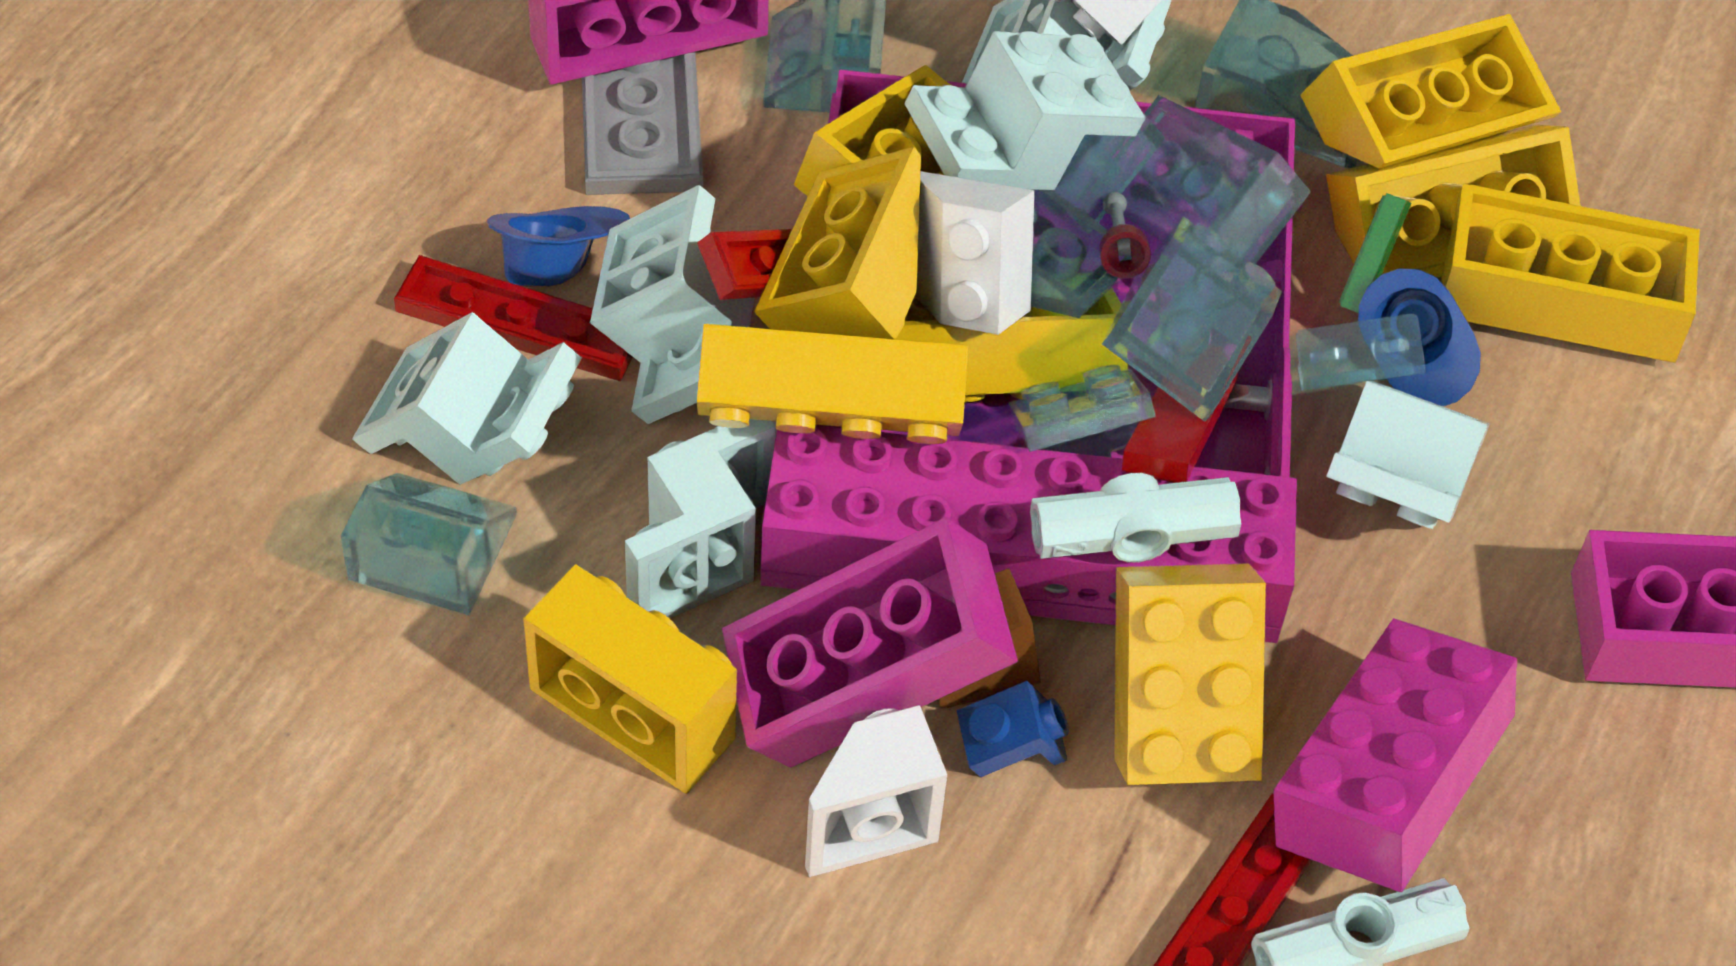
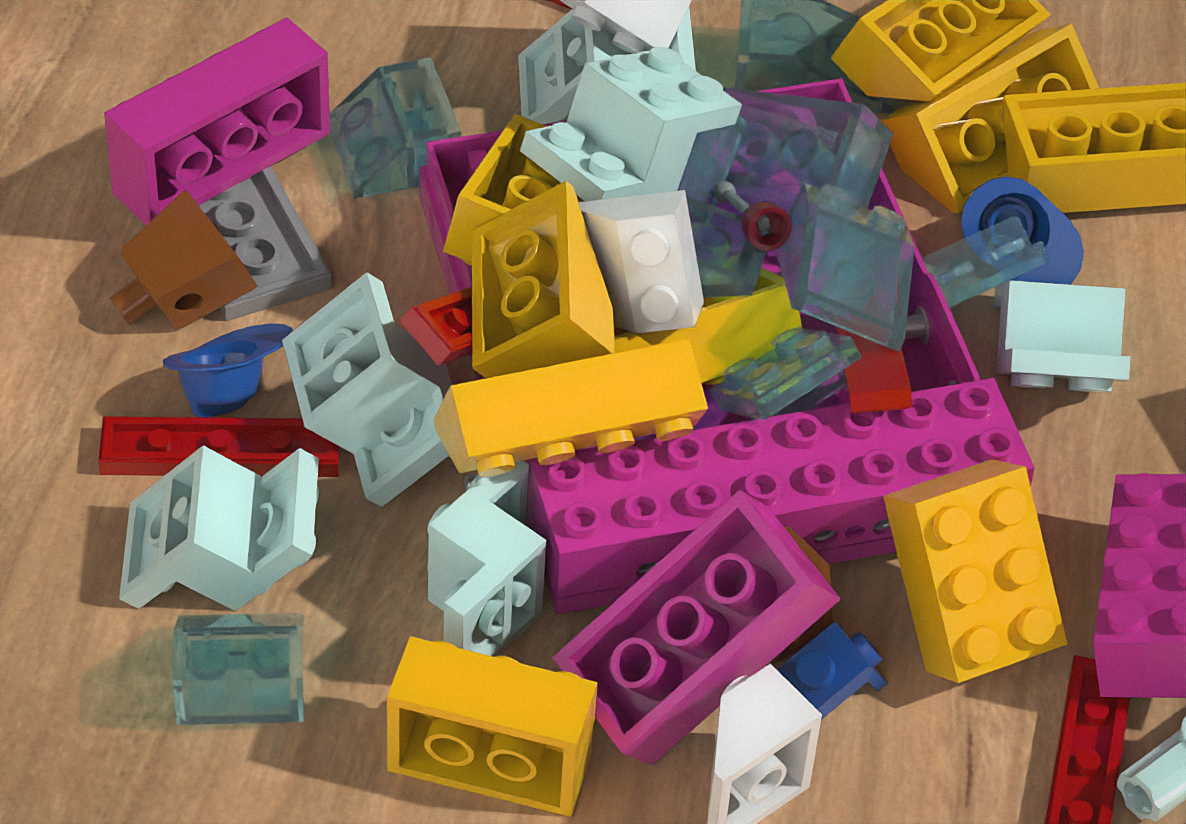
camera: 20 degrees left, 5 degrees down
(555, 128) = (181, 267): none -> dark orange torso
(1135, 517) = (885, 447): light aqua piece -> none
(1375, 249) = (955, 174): green tile -> none

